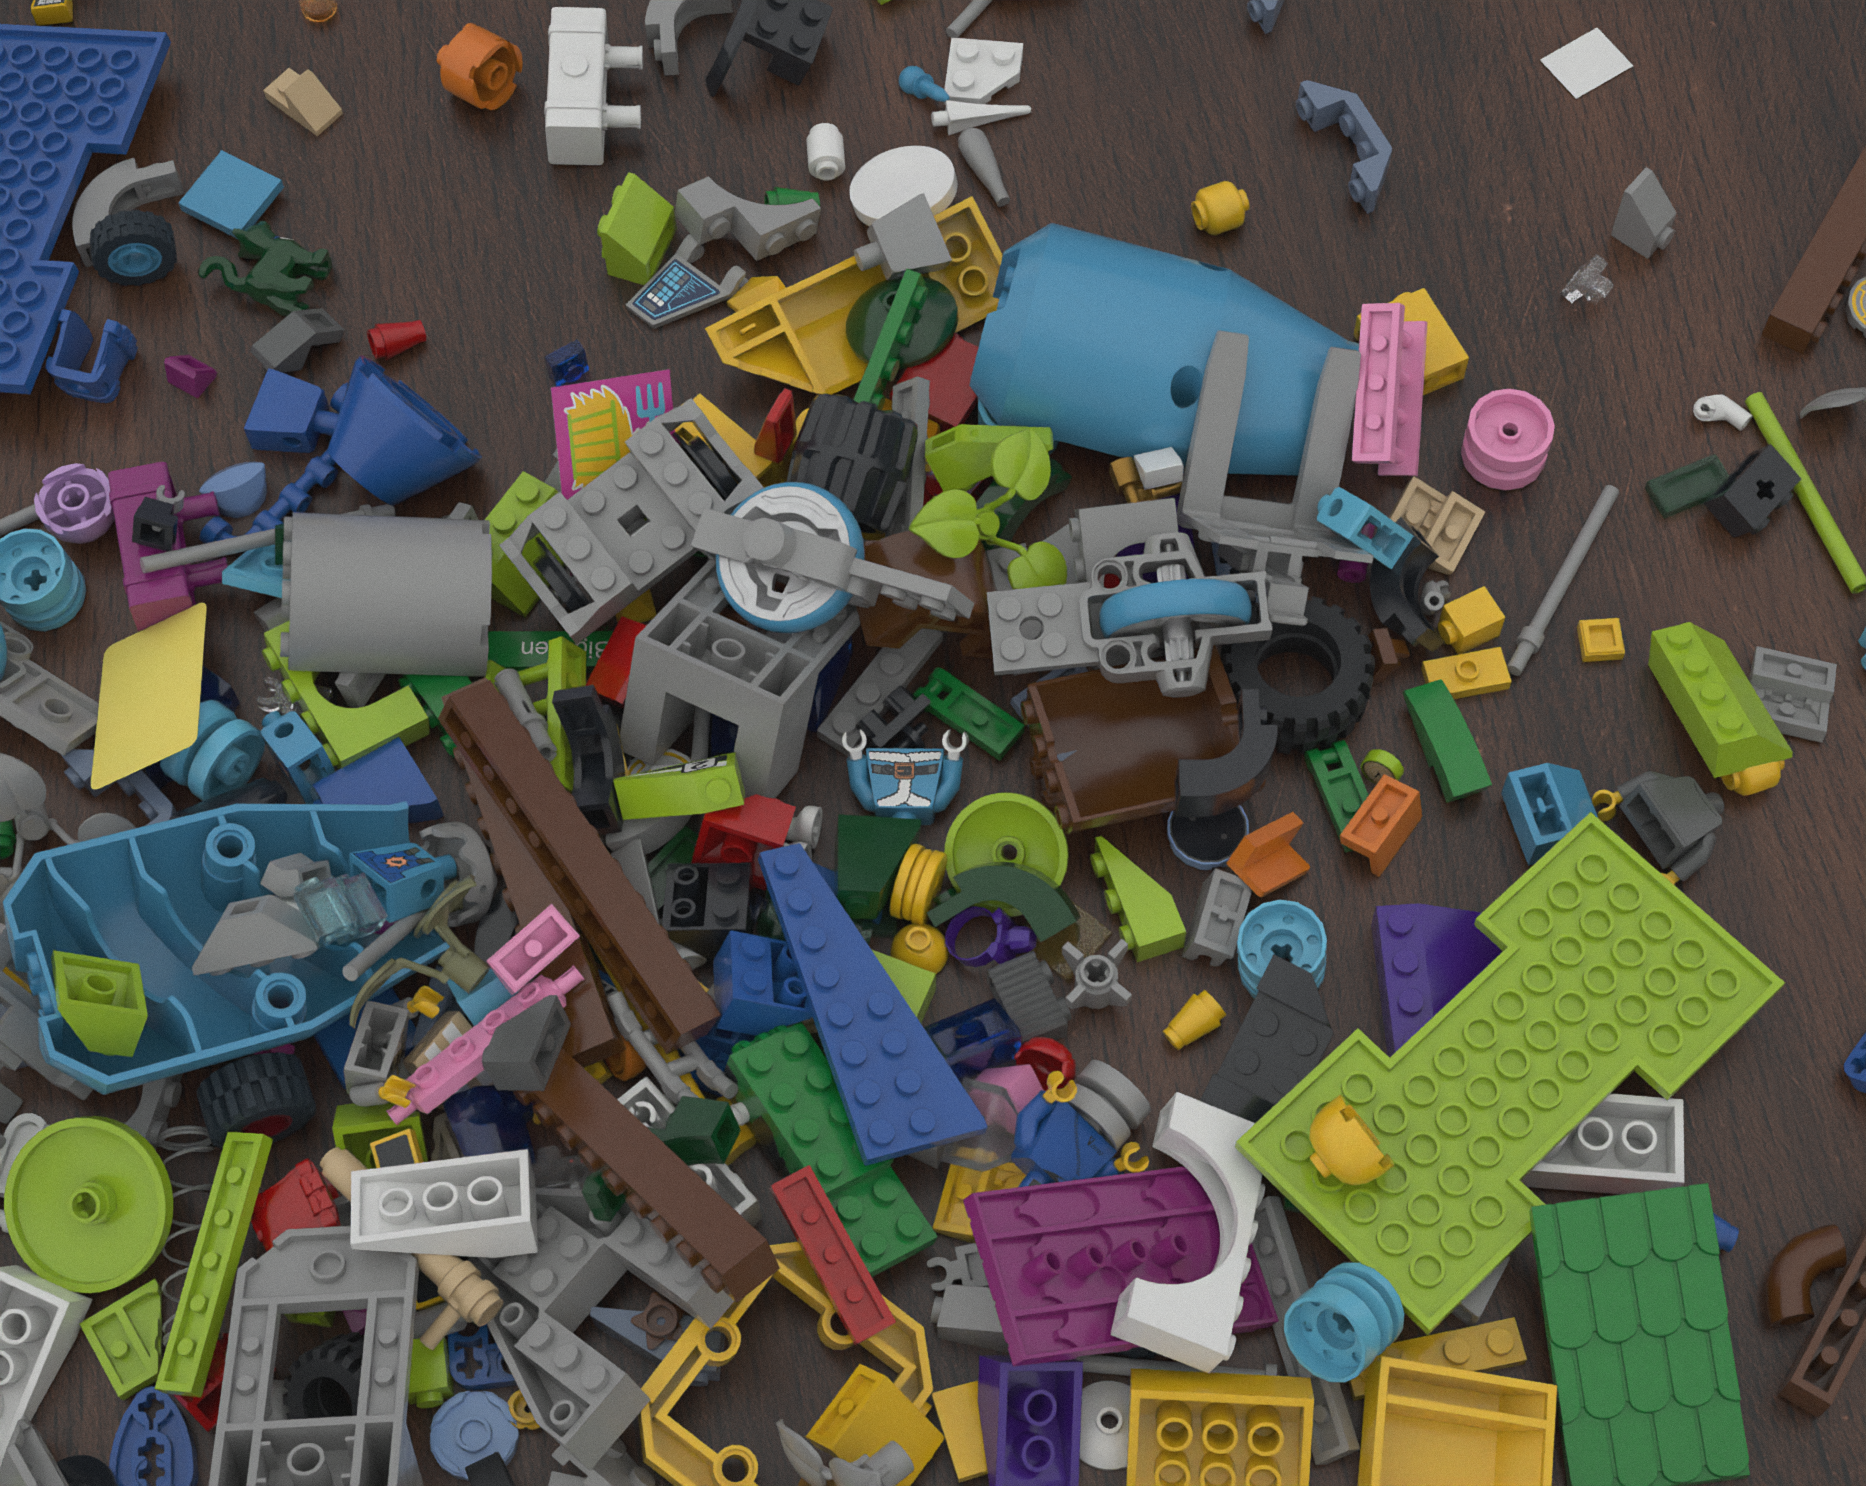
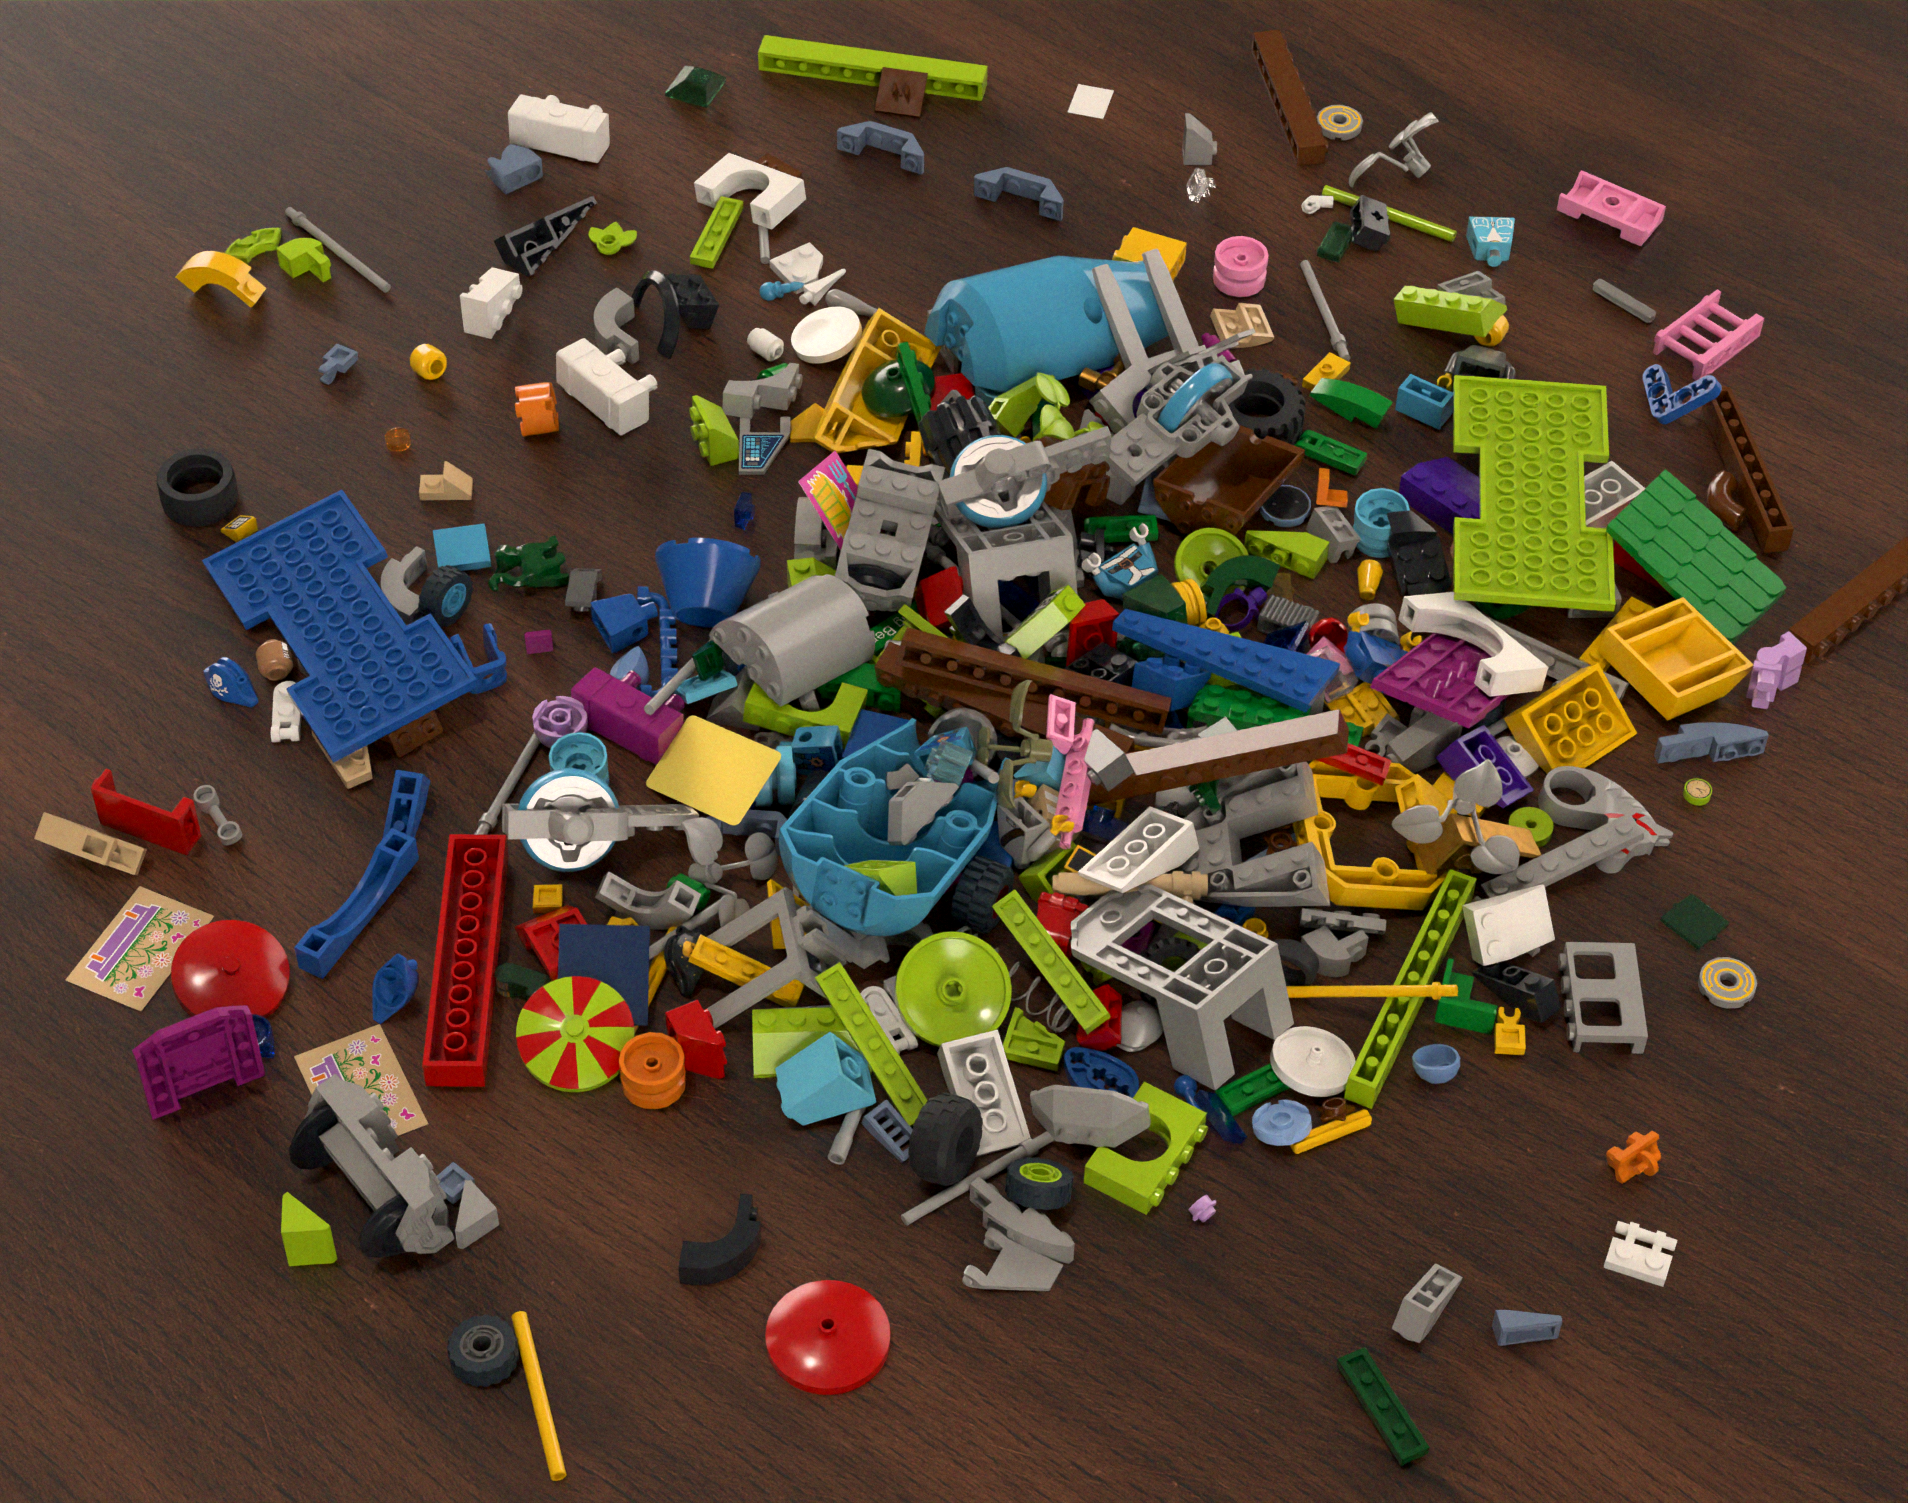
camera: 45 degrees left, 15 degrees down
(155, 521) = (634, 685): black piece -> none
(394, 338) = (633, 557): red cone -> none
(778, 429) = (912, 446): red slope -> none
(905, 240) = (871, 343): light grey torso -> none
(1096, 978) = (1311, 587): light grey brick -> none
(1159, 468) = (1108, 360): white slope -> none
(1219, 208) = (993, 254): yellow head -> none
(1228, 781) = (1290, 458): black arch -> none
(1344, 1322) = (1590, 632): medium azure wheel -> none
(1346, 1145) = (1508, 551): yellow cylinder -> none
(1349, 514) = (1220, 326): medium azure torso -> none
(1379, 763) = (1335, 429): tile -> none
(1383, 822) = (1361, 446): orange panel -> none
(1389, 390) = (1187, 280): bright pink fence -> none
(1396, 591) = (1262, 358): black arch -> none
(1434, 596) = (1279, 352): light grey arm -> none
(1470, 620) = (1306, 349): yellow brick -> none
(1600, 639) = (1368, 324): yellow tile -> none

